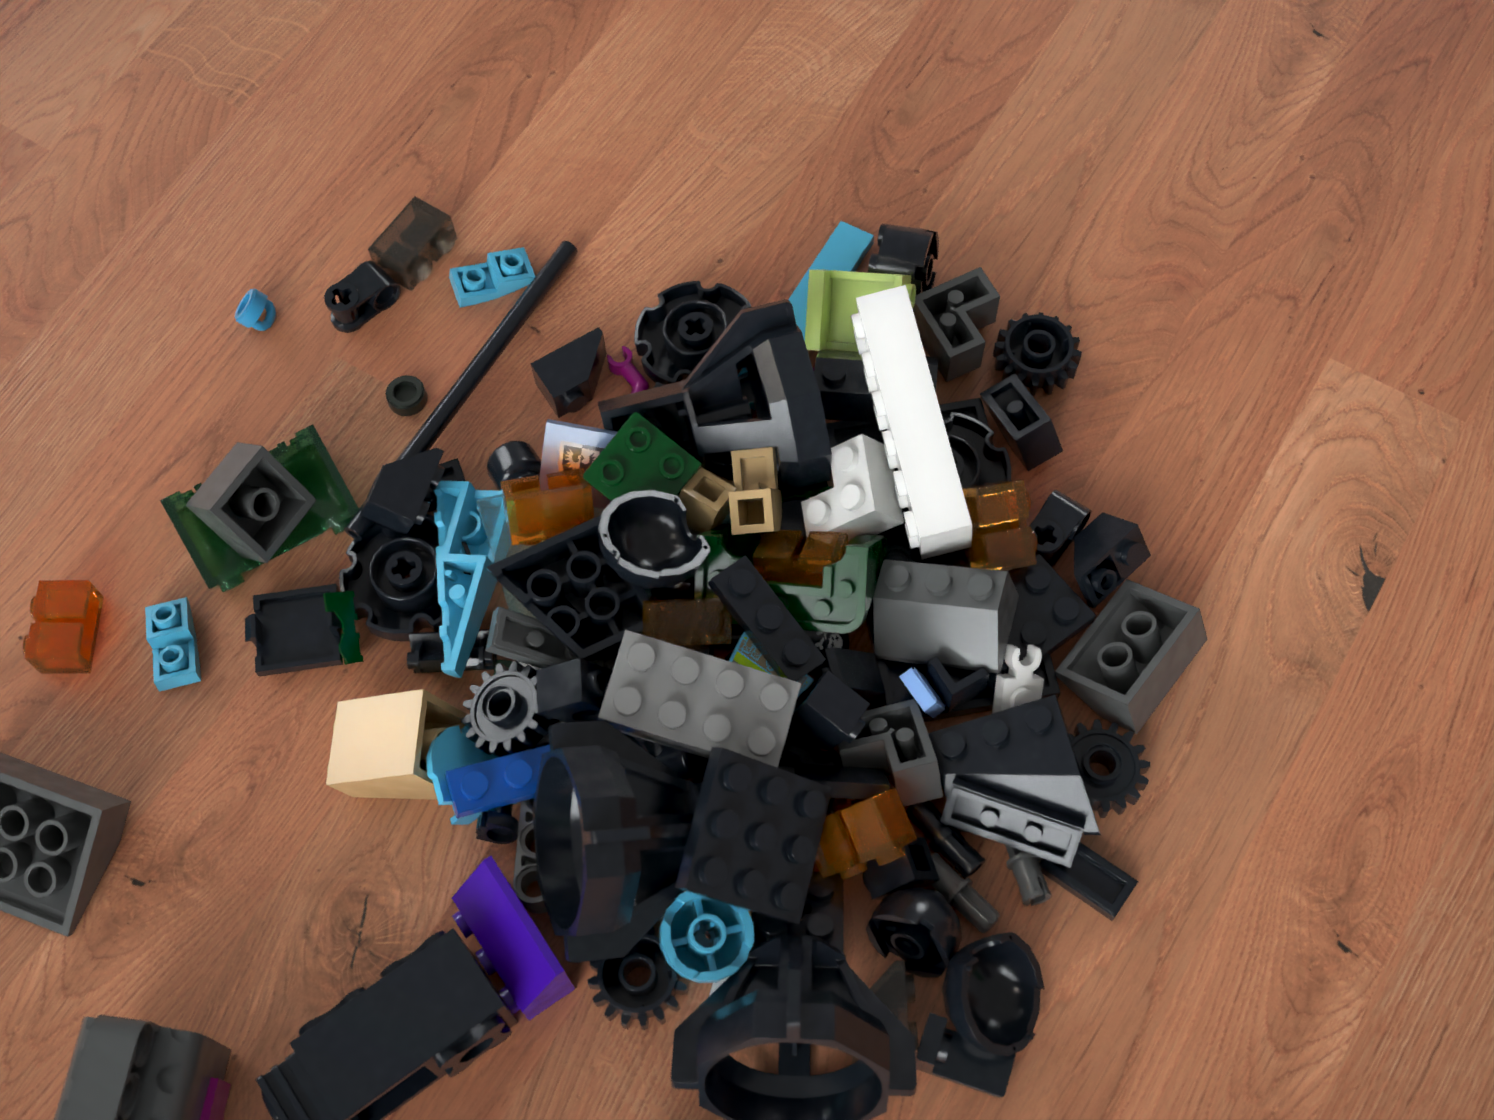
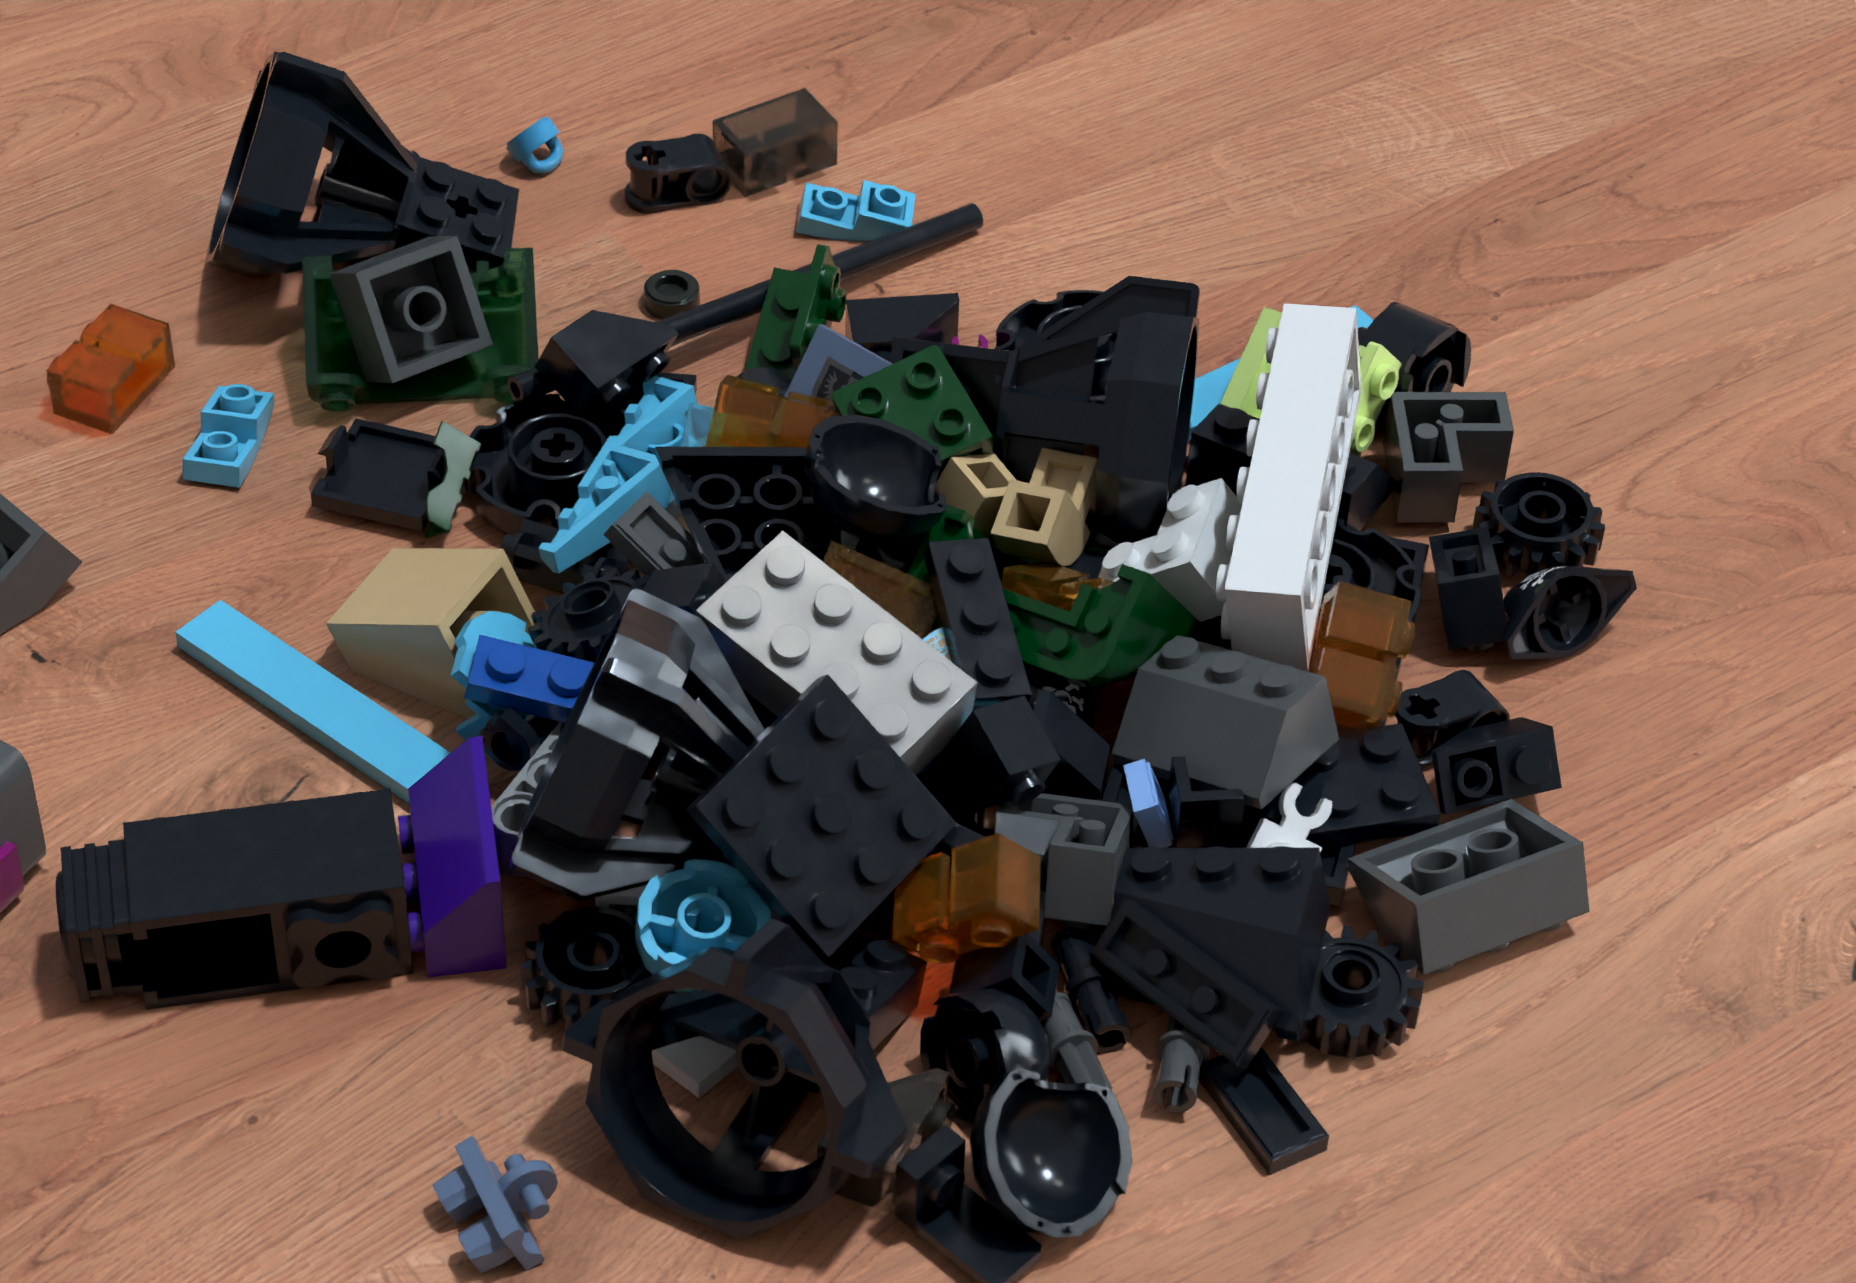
camera: 20 degrees right, 20 degrees down
(135, 456) = (368, 195): none -> black plate
(353, 839) = (310, 698): none -> medium azure tile
(505, 396) = (794, 310): none -> dark green bracket
(1081, 412) = (1562, 609): none -> black hat

